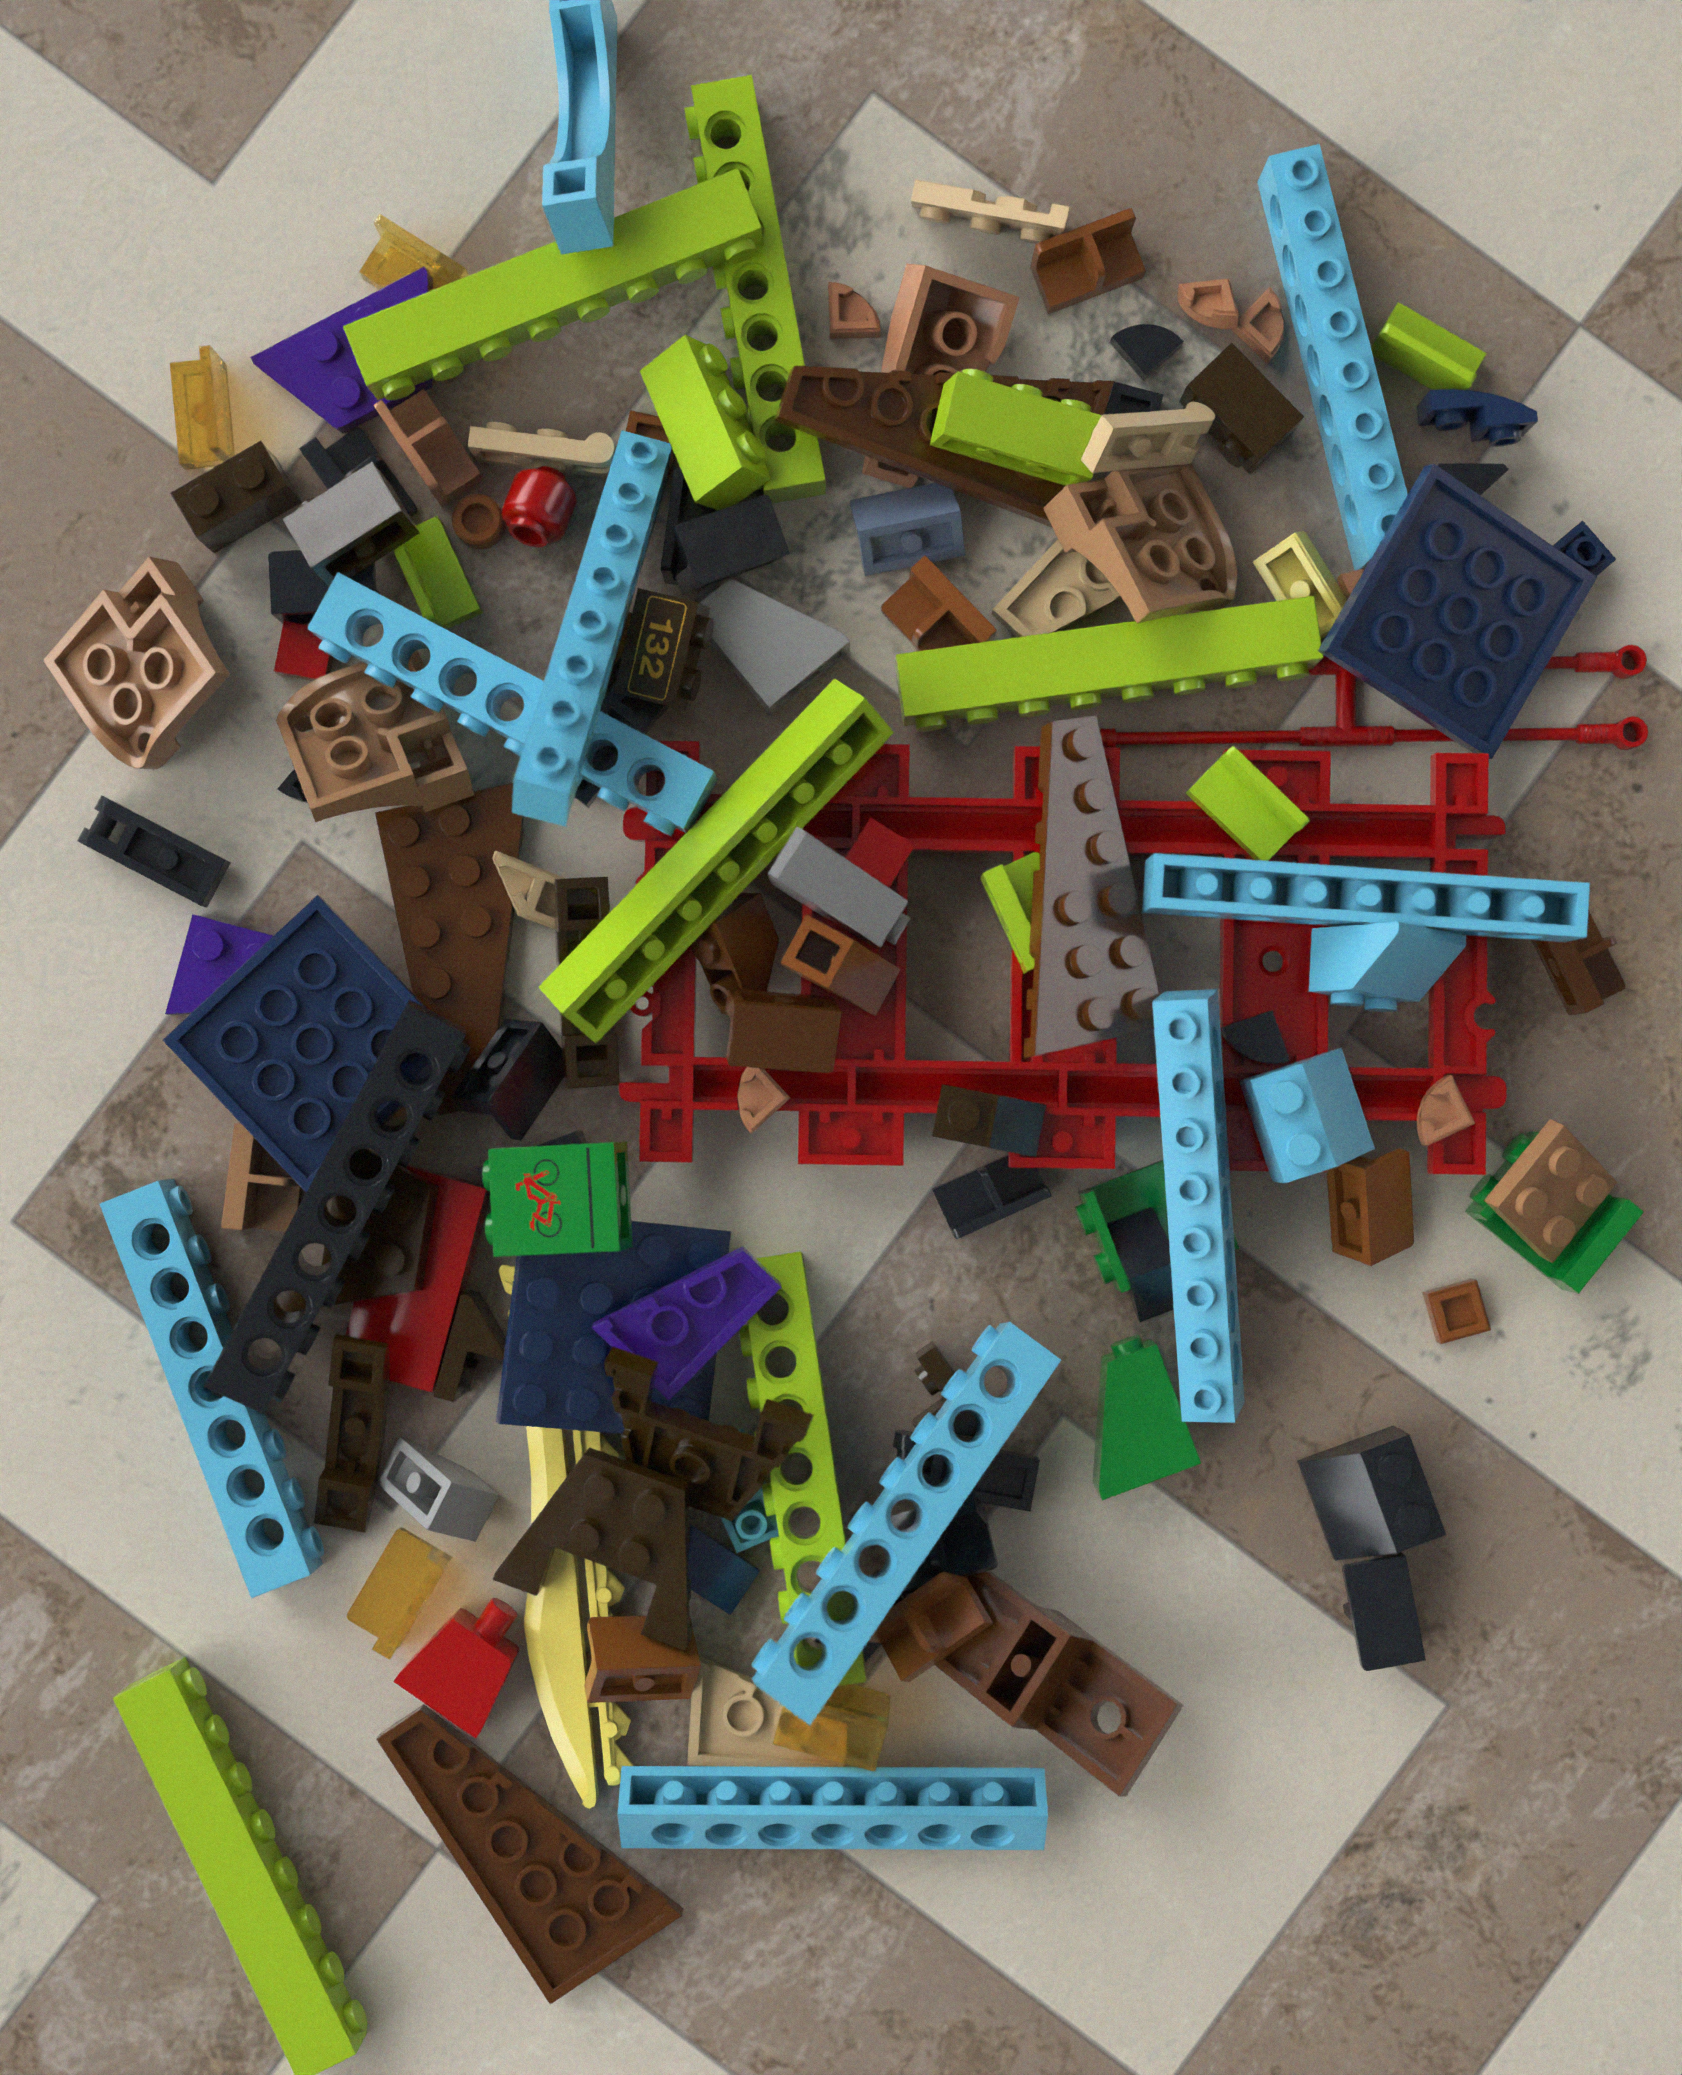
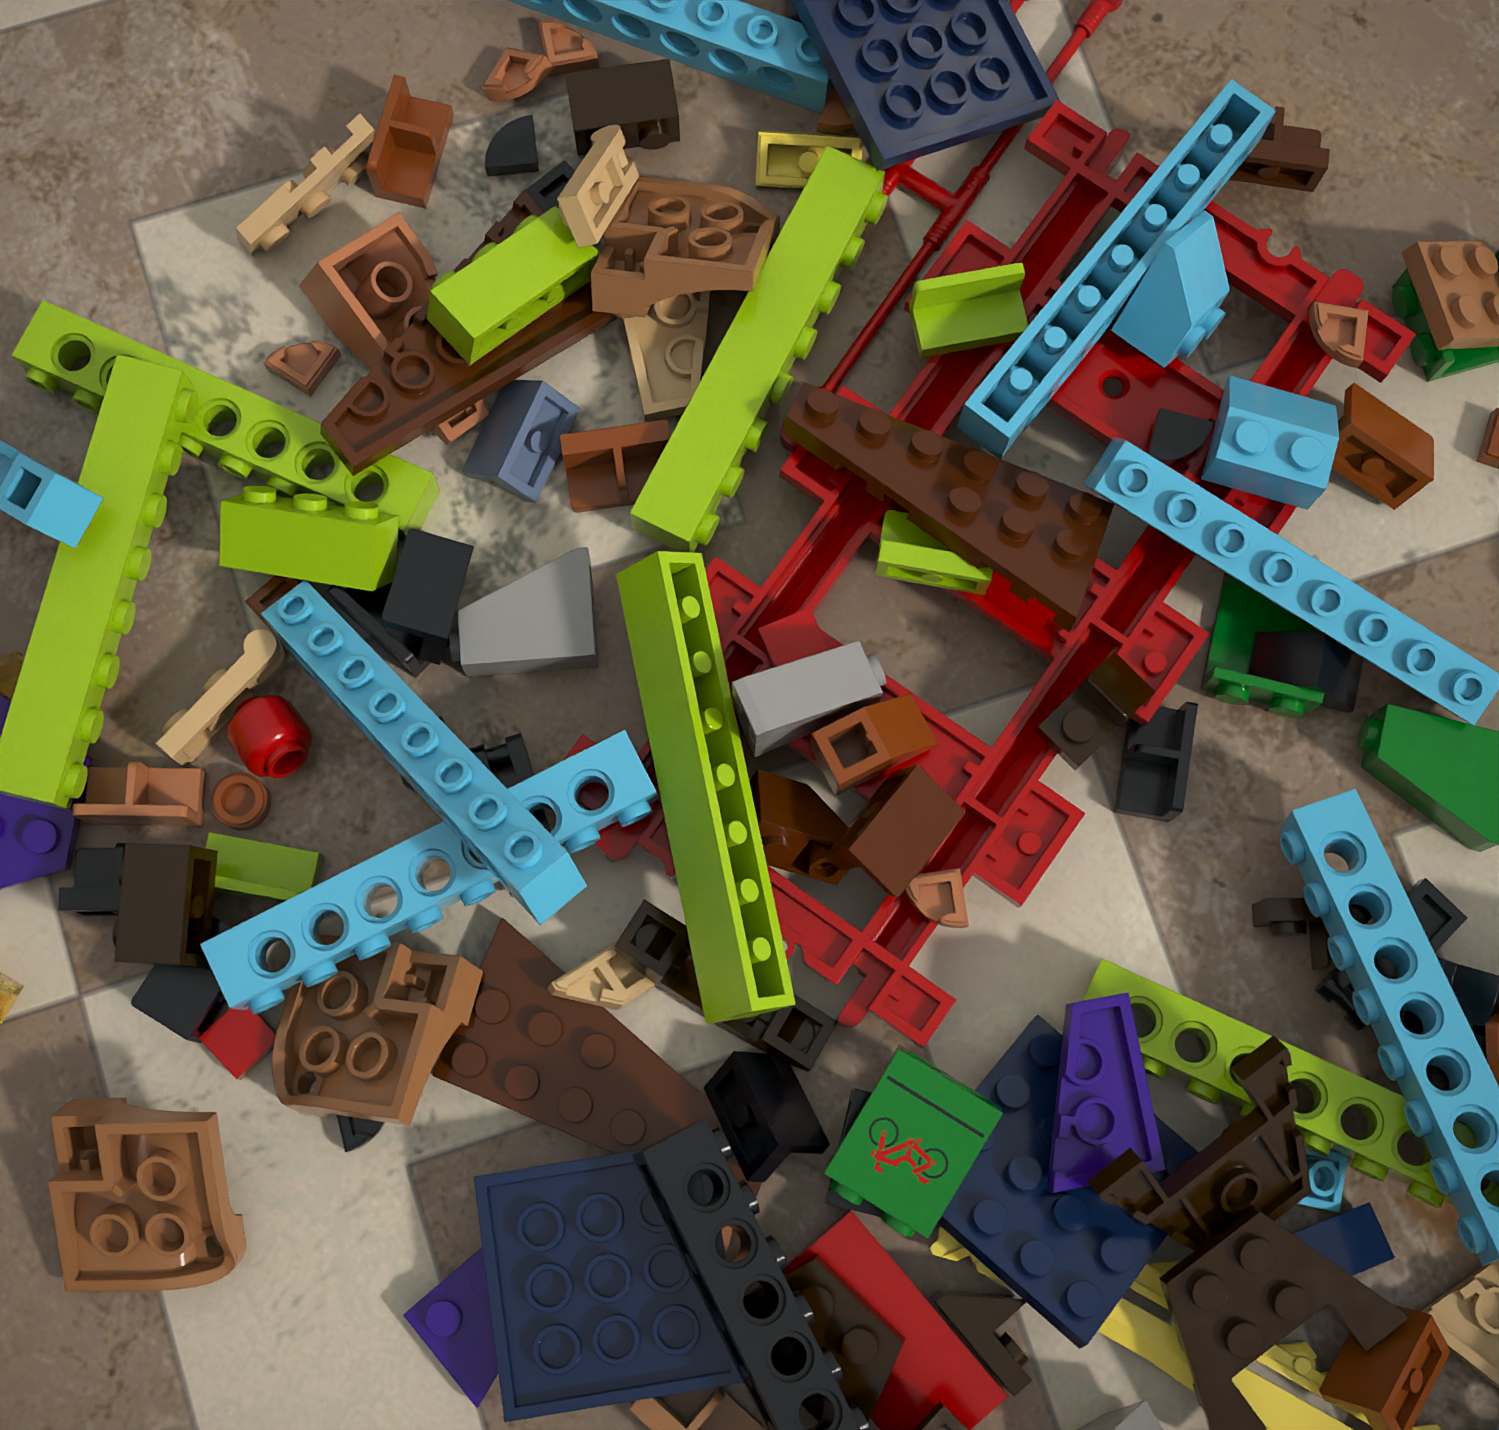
camera: 60 degrees left, 10 degrees down
(155, 852) = (320, 1309): black plate -> none
(236, 497) = (56, 1000): dark brown brick -> none
(664, 649) = (479, 705): dark brown brick -> none

